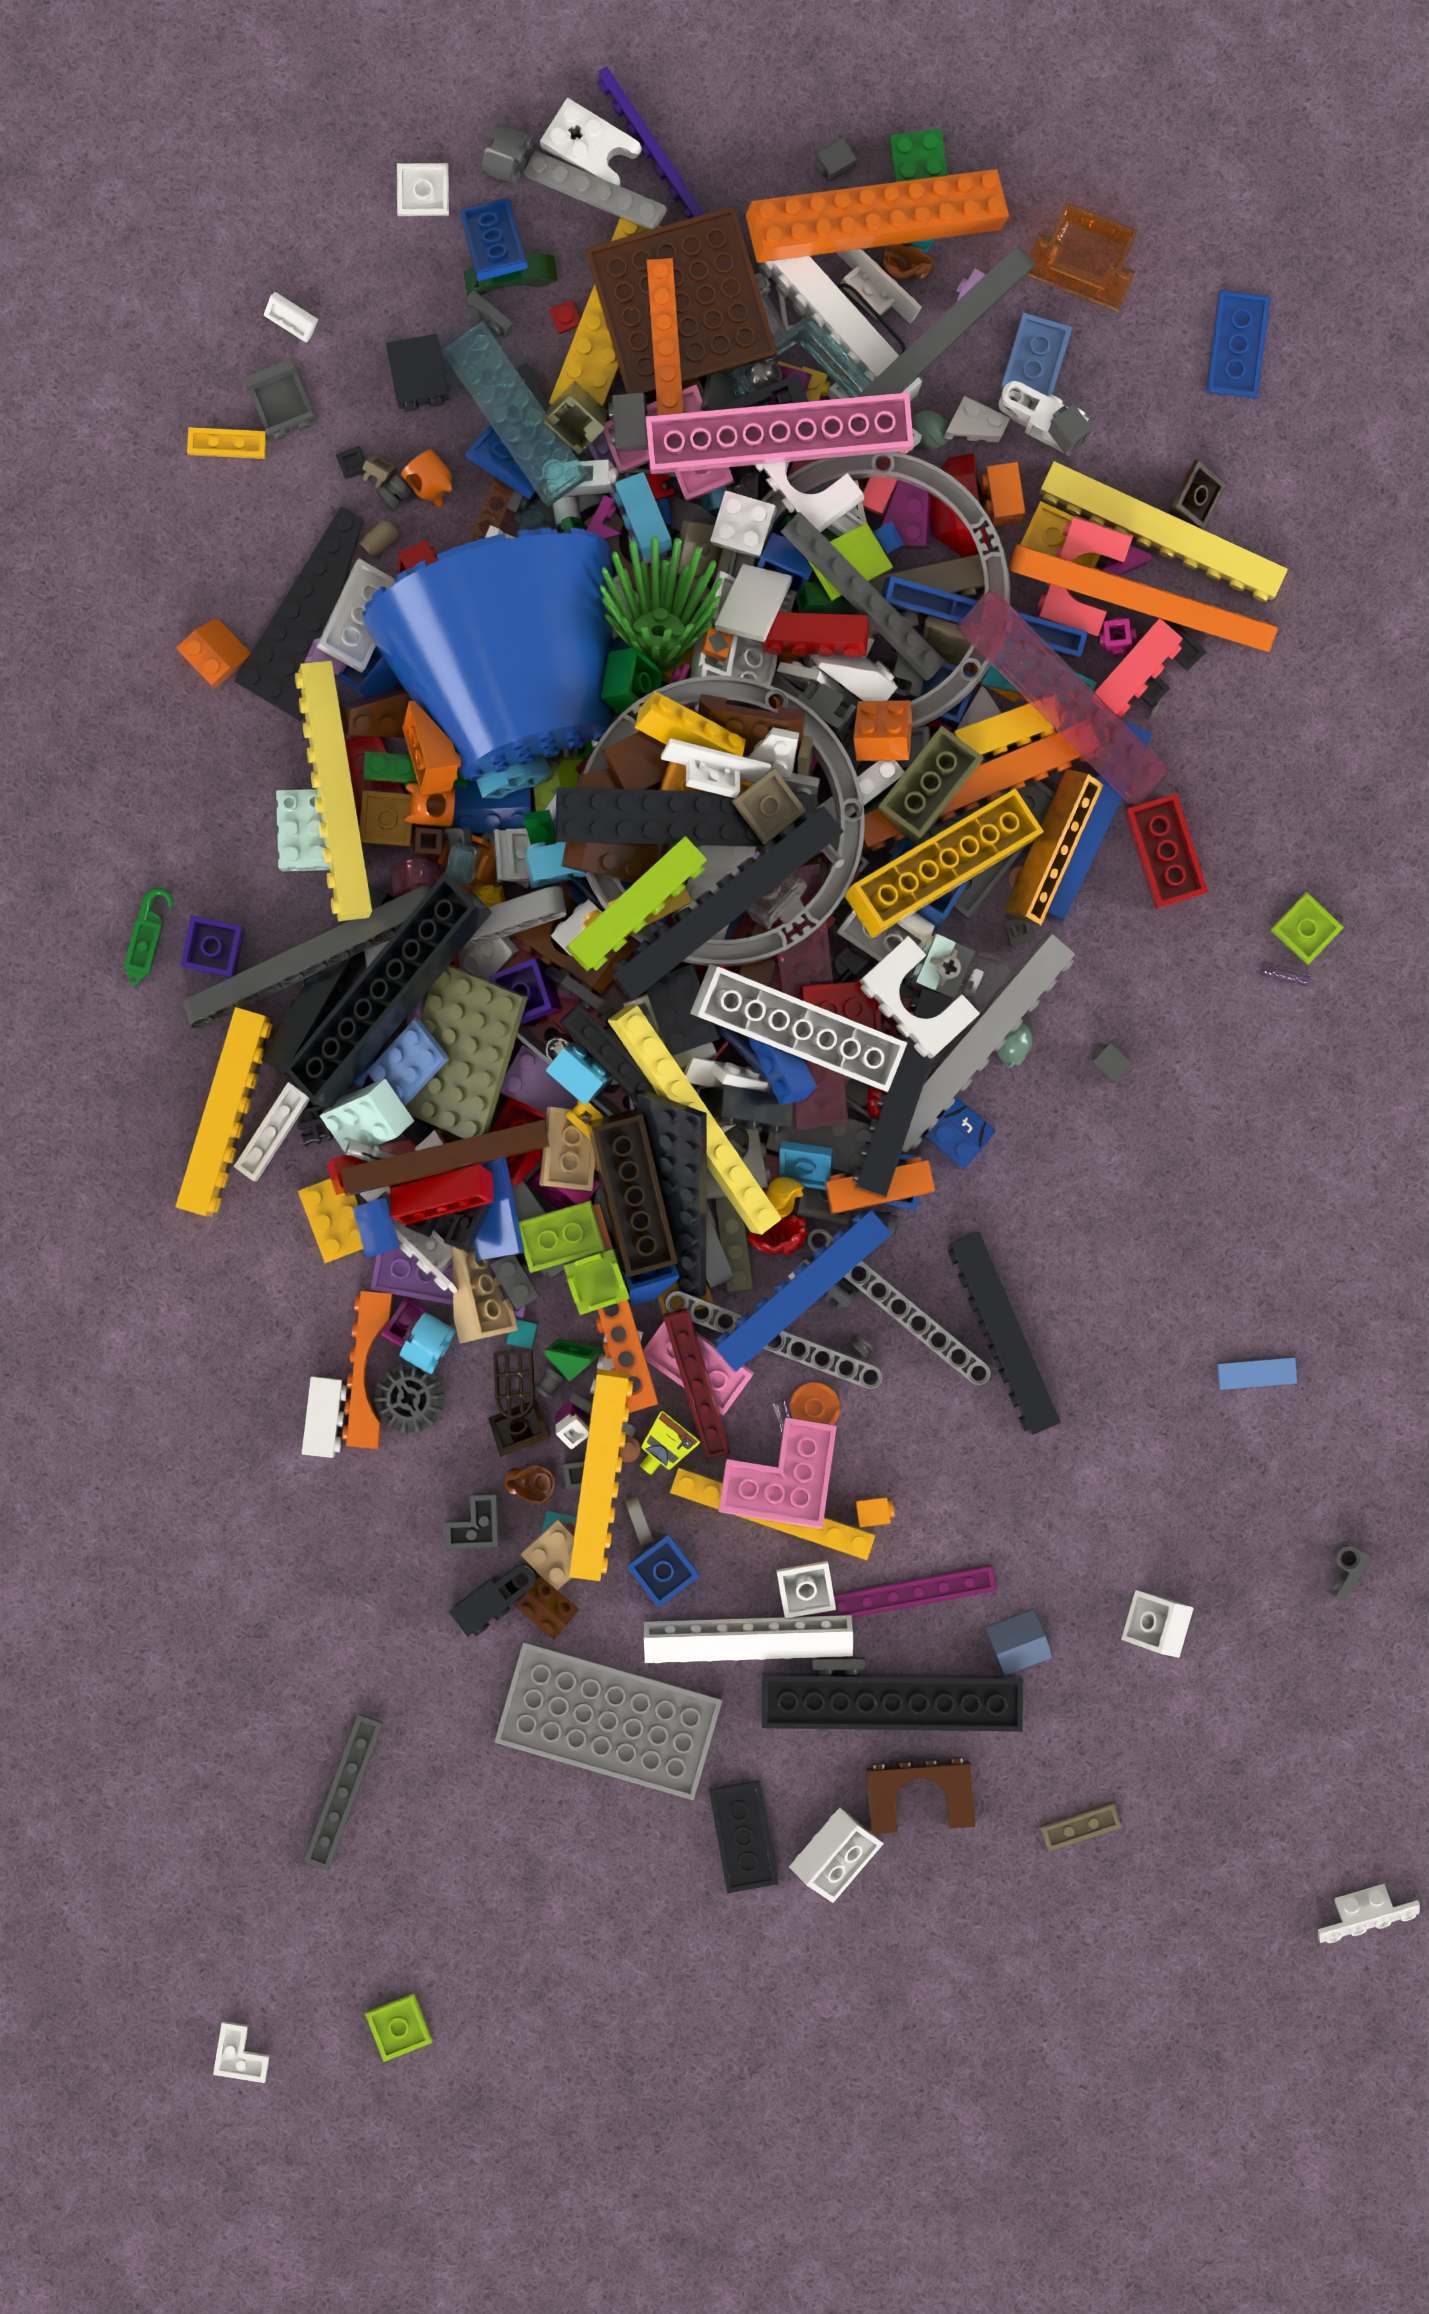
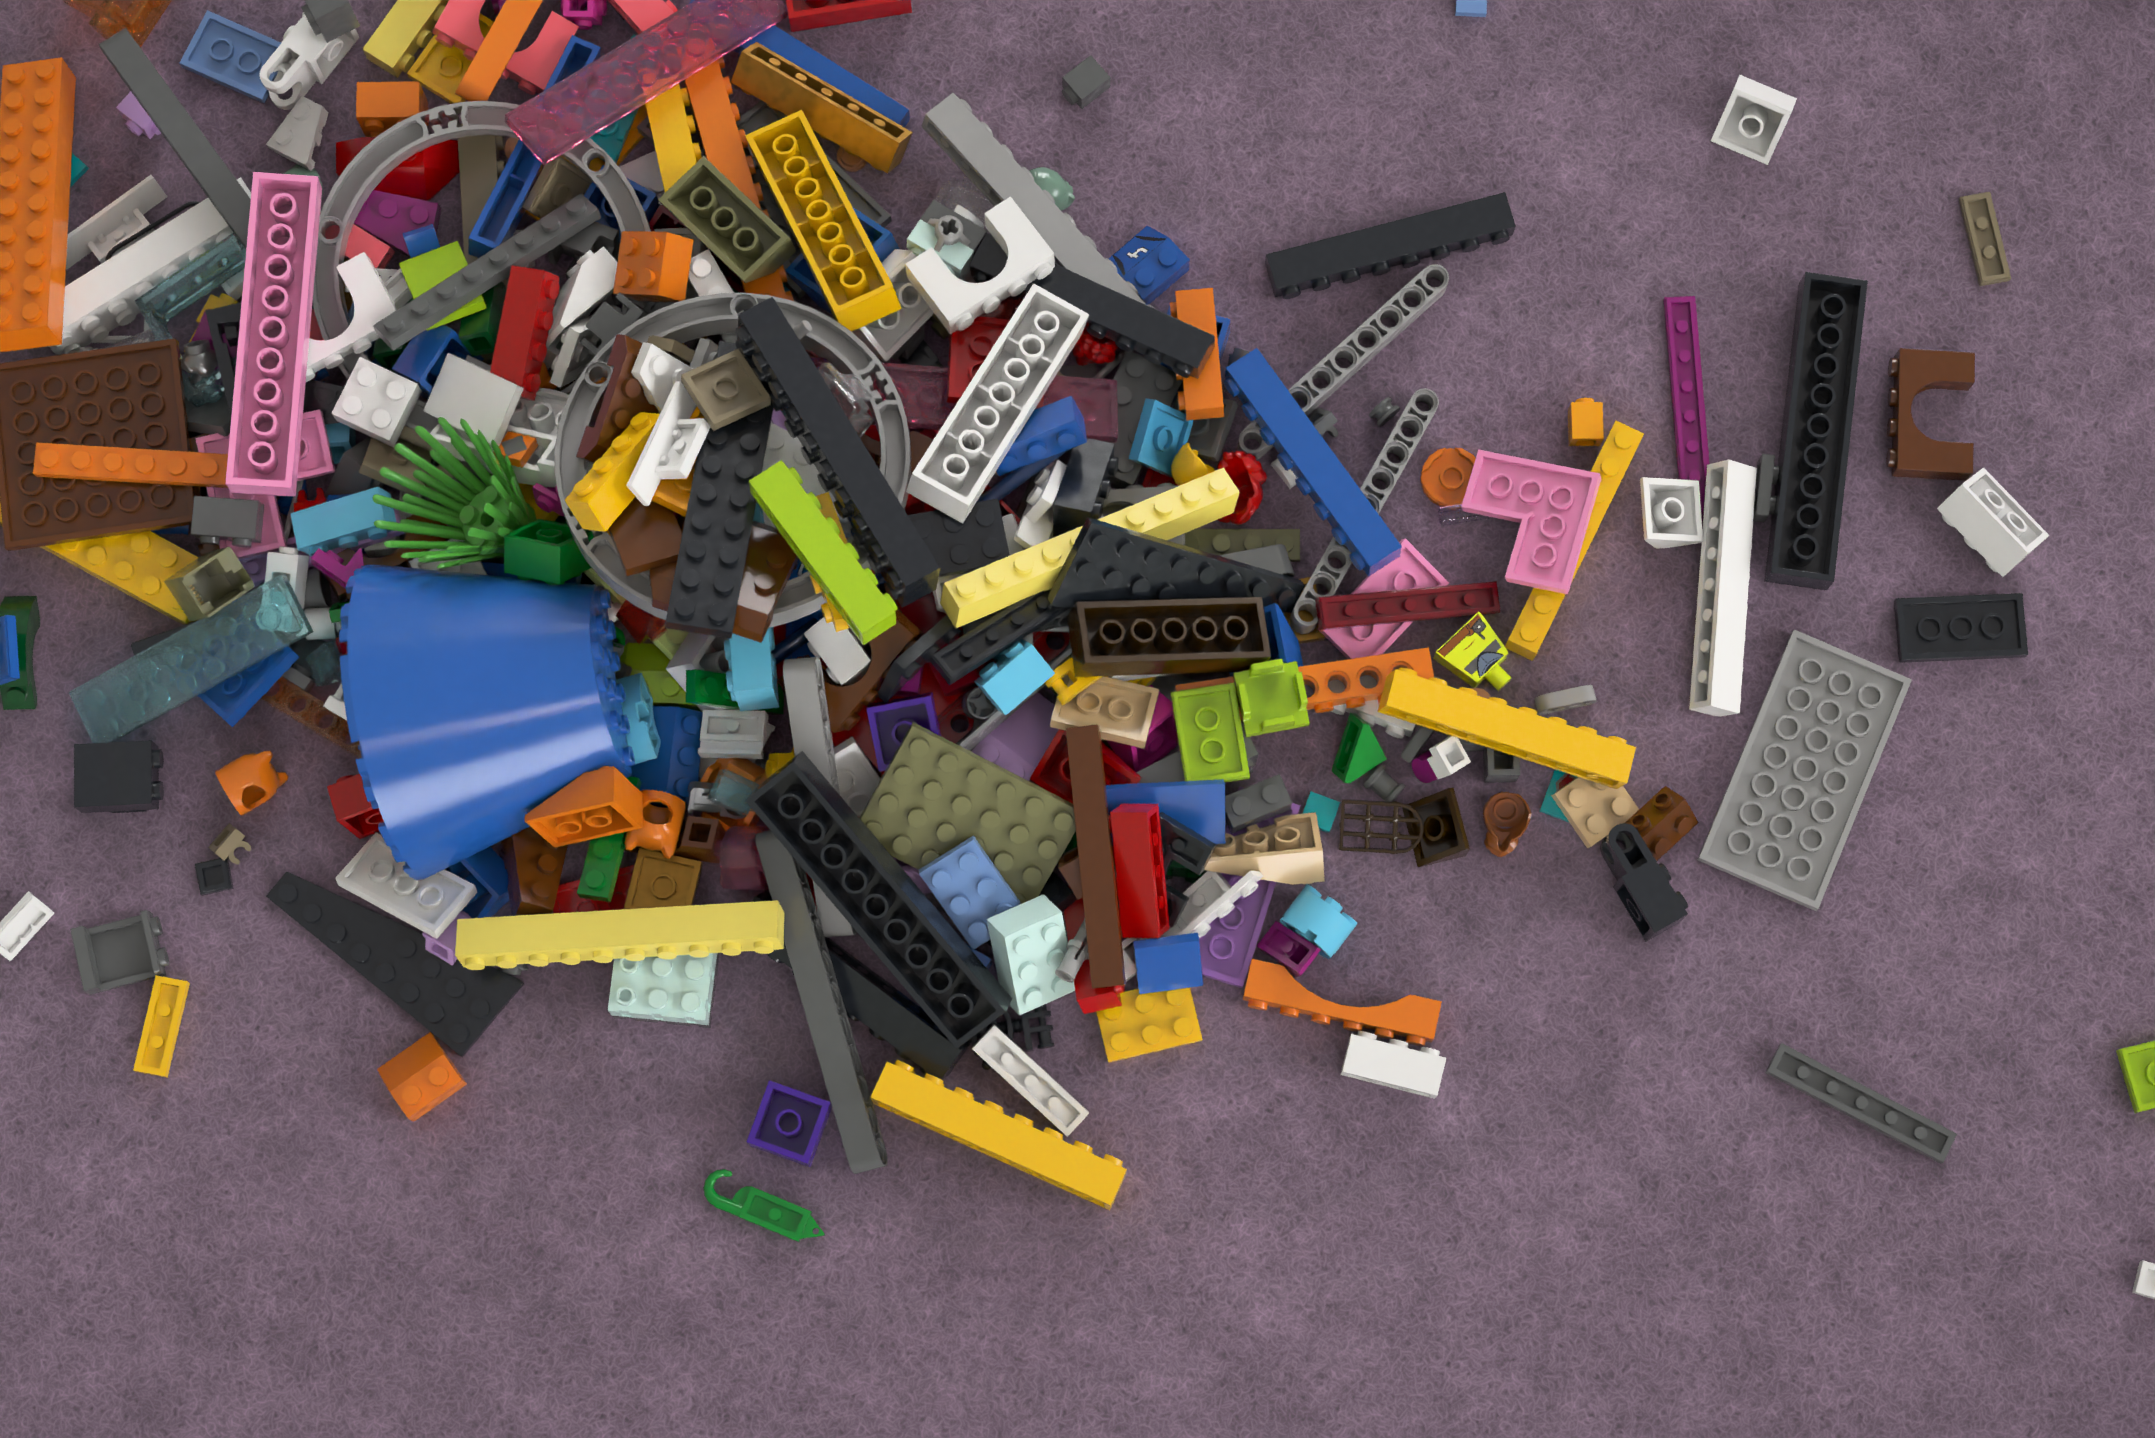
camera: 80 degrees left, 10 degrees down
(380, 538) = (314, 853): dark tan piece -> none
(394, 492) = (260, 827): dark grey wheel -> none
(420, 1418) = (1355, 968): dark grey gear -> none
(481, 1529) = (1552, 886): dark grey brick -> none
(496, 321) = (56, 688): dark grey plate -> none
(565, 317) = (82, 595): red plate -> none
(663, 1570) = (1629, 676): blue brick -> none
(918, 263) = (94, 176): dark orange hair -> none
(1019, 931) = (914, 167): dark grey tile -> none
(1019, 1642) = (1758, 278): sand blue slope -> none

